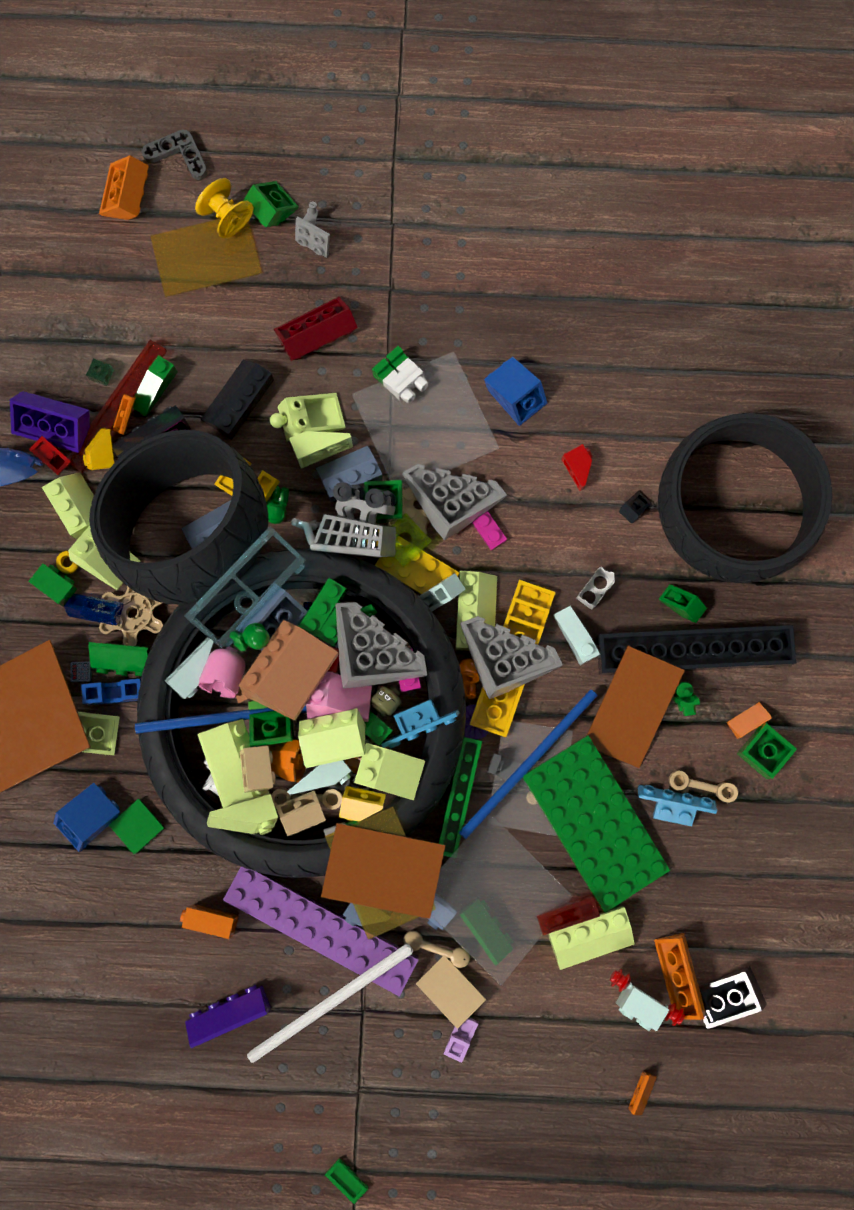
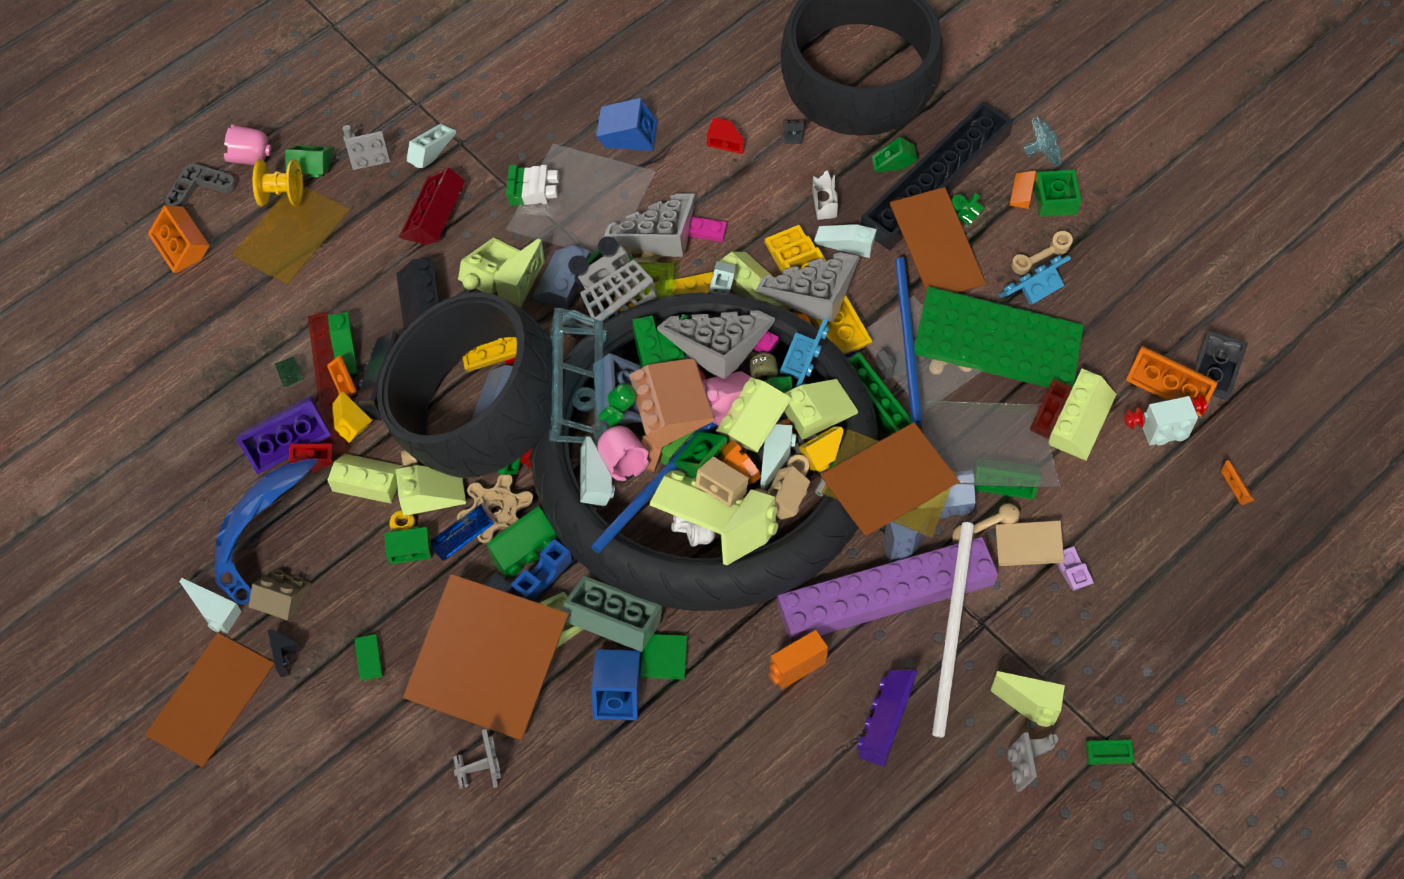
camera: 40 degrees left, 20 degrees down
(125, 768) = (612, 613): none -> sand green brick
(234, 152) = (246, 145): none -> bright pink cylinder
(288, 1130) = (1022, 754): none -> light grey plate
(332, 1107) = (1033, 698): none -> yellowish green slope
(363, 271) = (429, 145): none -> light aqua slope
(805, 701) = (1045, 142): none -> clear light blue plate

